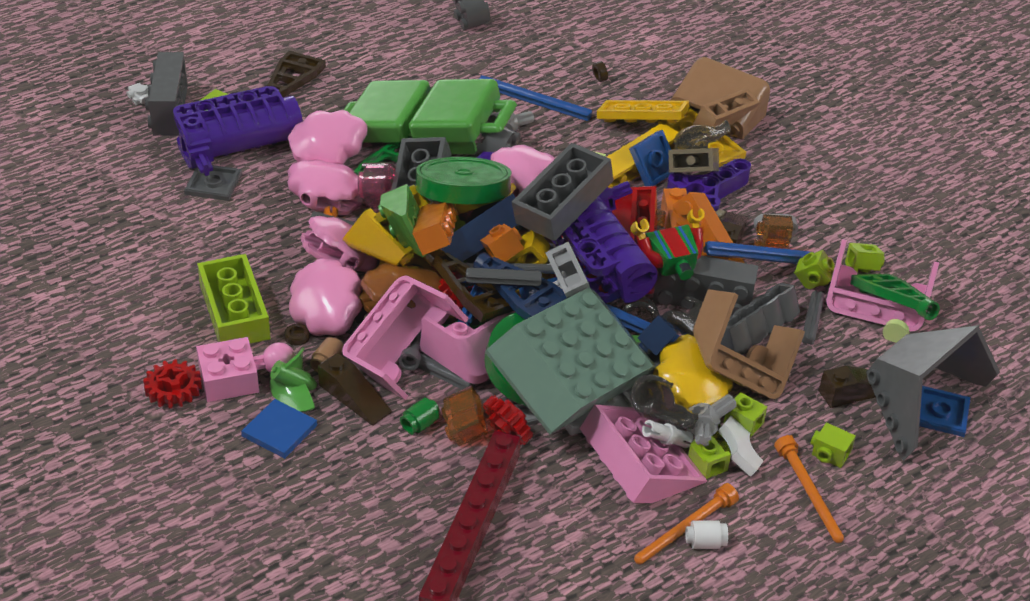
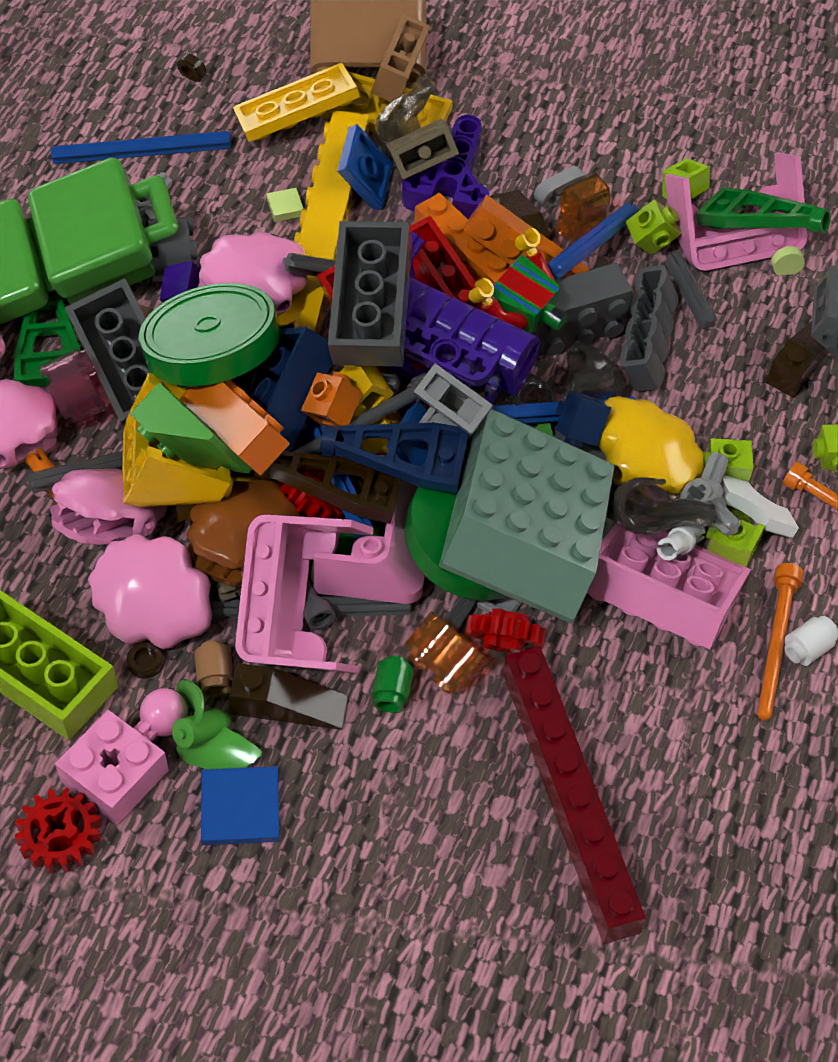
camera: 35 degrees left, 15 degrees up
(503, 276) = (379, 450): dark grey axle -> none
(764, 368) = (687, 393): medium nougat windscreen -> none

